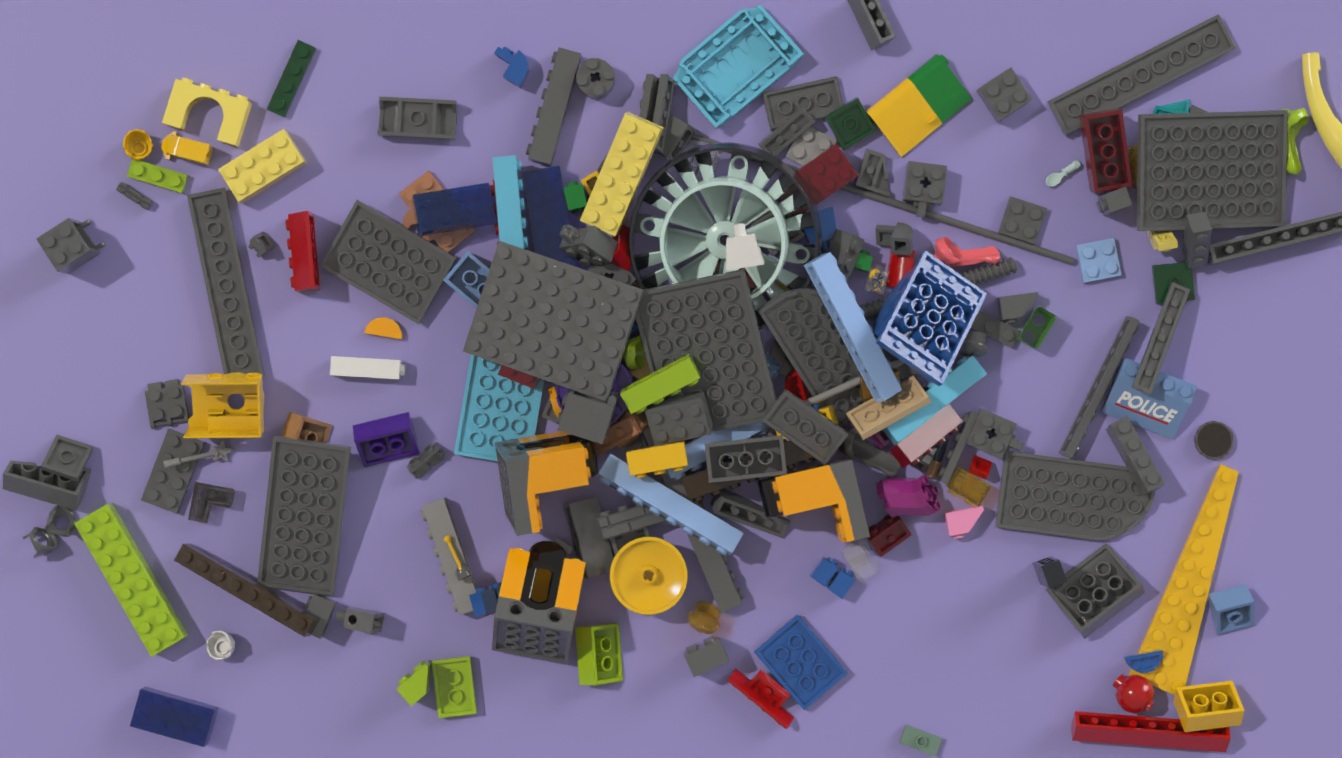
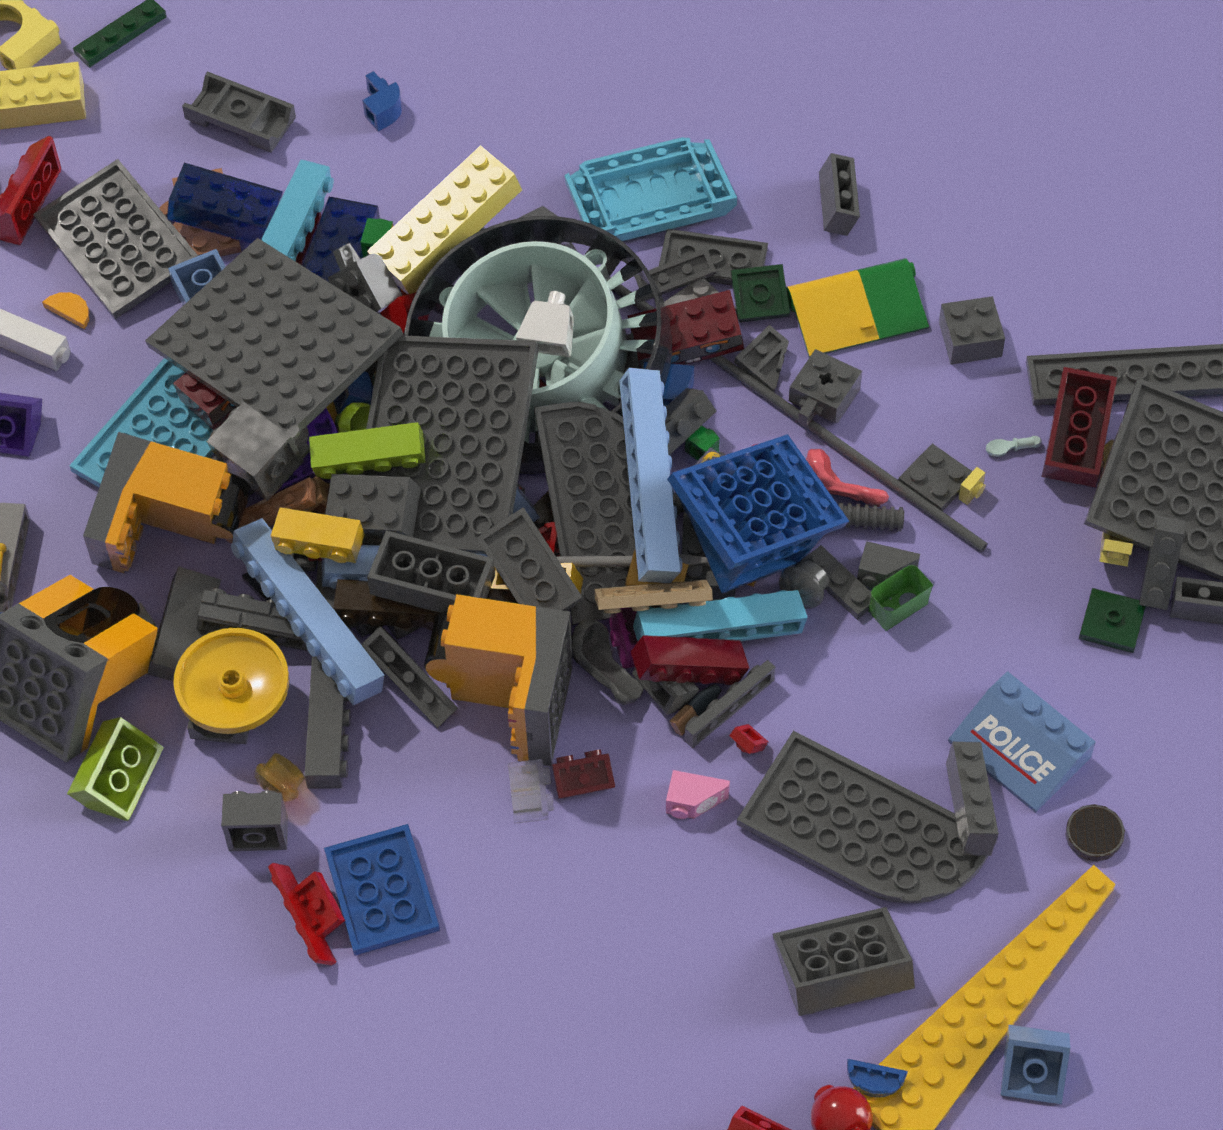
camera: 25 degrees right, 30 degrees down
(432, 454) = (21, 464): dark grey hinge -> none
(554, 107) = (409, 153): dark grey brick -> none
(591, 68) = (466, 135): dark grey brick -> none
(657, 103) = (537, 184): dark grey brick -> none
(841, 582) = (476, 791): blue piece -> none
(898, 237) = (756, 427): dark grey brick -> none
(908, 496) = (632, 730): magenta brick -> none
(920, 740) = (499, 1064): sand green plate -> none
(967, 486) = (720, 754): clear yellow brick -> none
(1002, 430) = (782, 703): dark grey hinge -> none
(1050, 220) = (972, 486): none -> light yellow plate
(1050, 572) = (785, 892): black brick -> none
(1098, 260) = (1020, 558): light blue plate -> none
(1101, 382) = (949, 710): dark grey plate -> none
(1114, 201) = (1067, 488): dark grey piece -> none
(1160, 338) = (1065, 662): dark grey plate -> none

